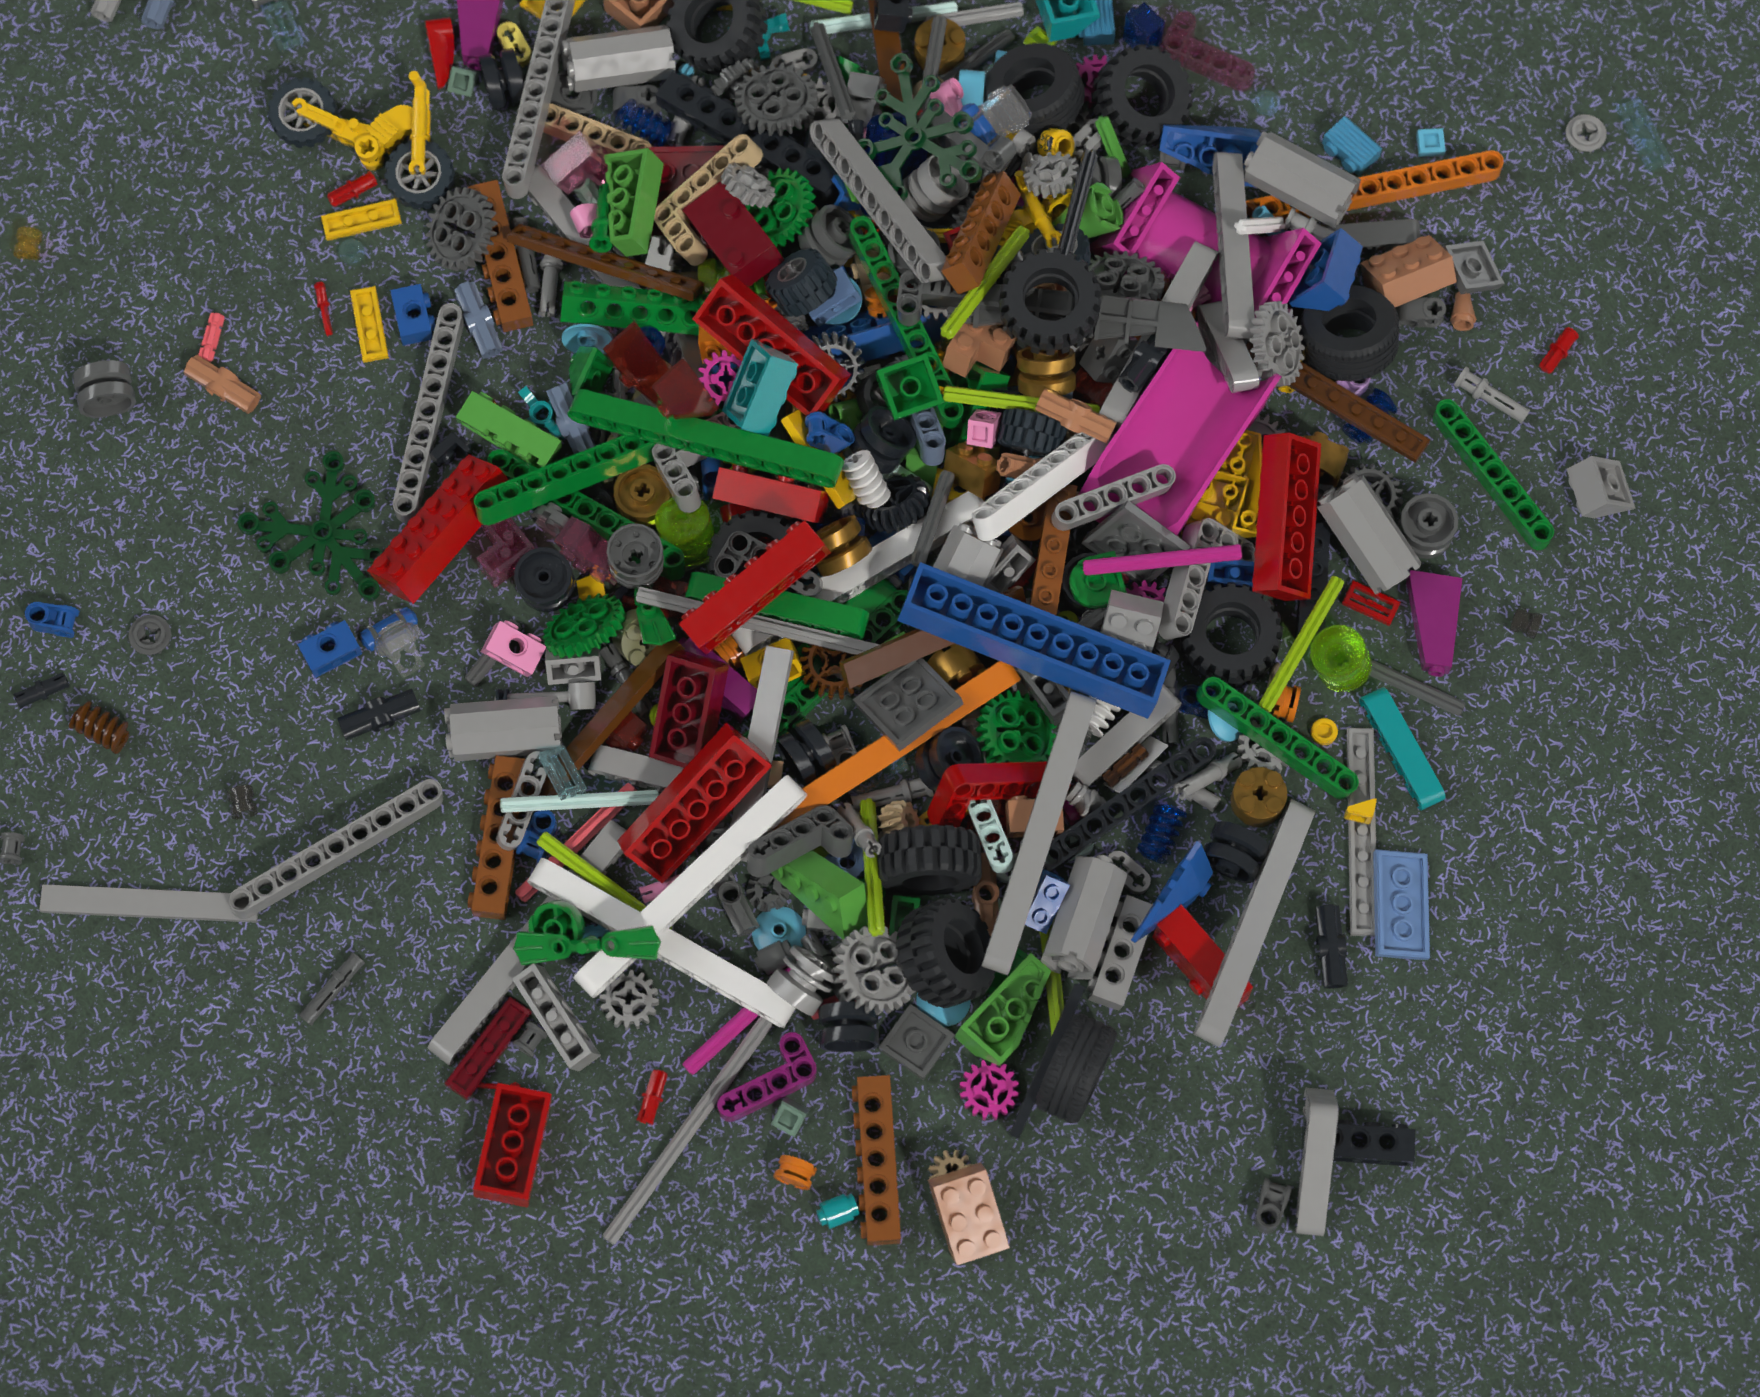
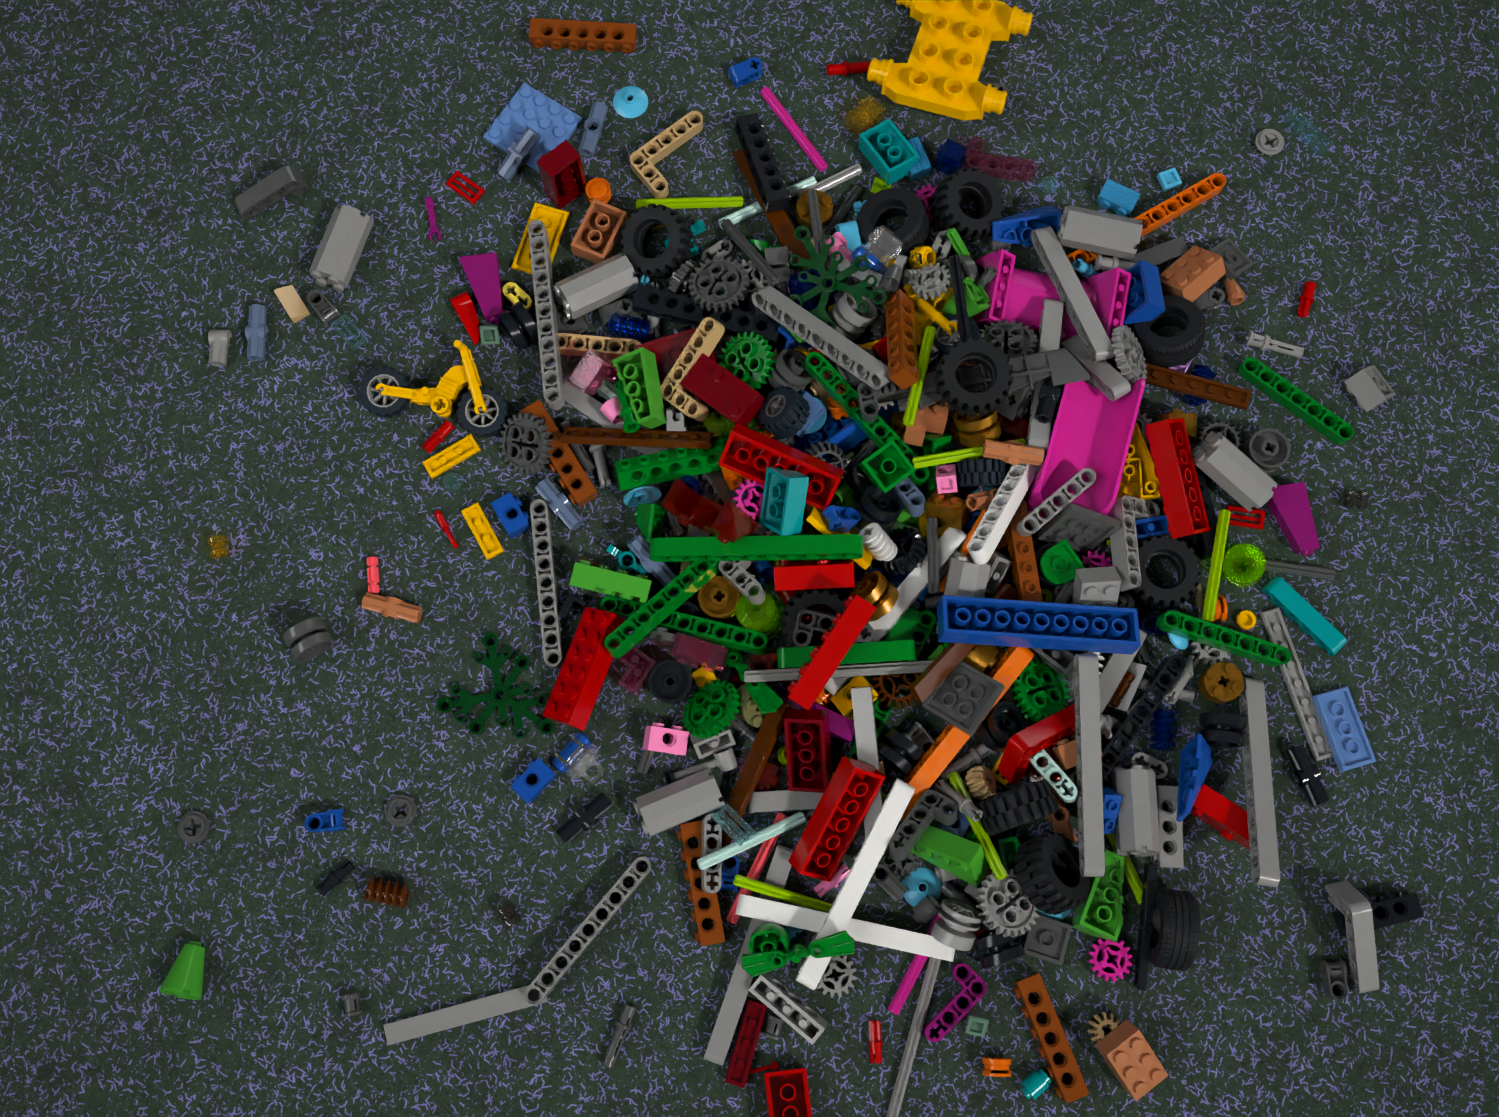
camera: 15 degrees left, 5 degrees up
(639, 542) = (735, 639): dark grey wheel -> none
(748, 185) = (723, 353): light grey gear -> none
(1162, 559) = (1105, 536): dark pink axle -> none
(1260, 225) = (1084, 274): white axle -> none
(1361, 812) = (1297, 671): yellow slope -> none

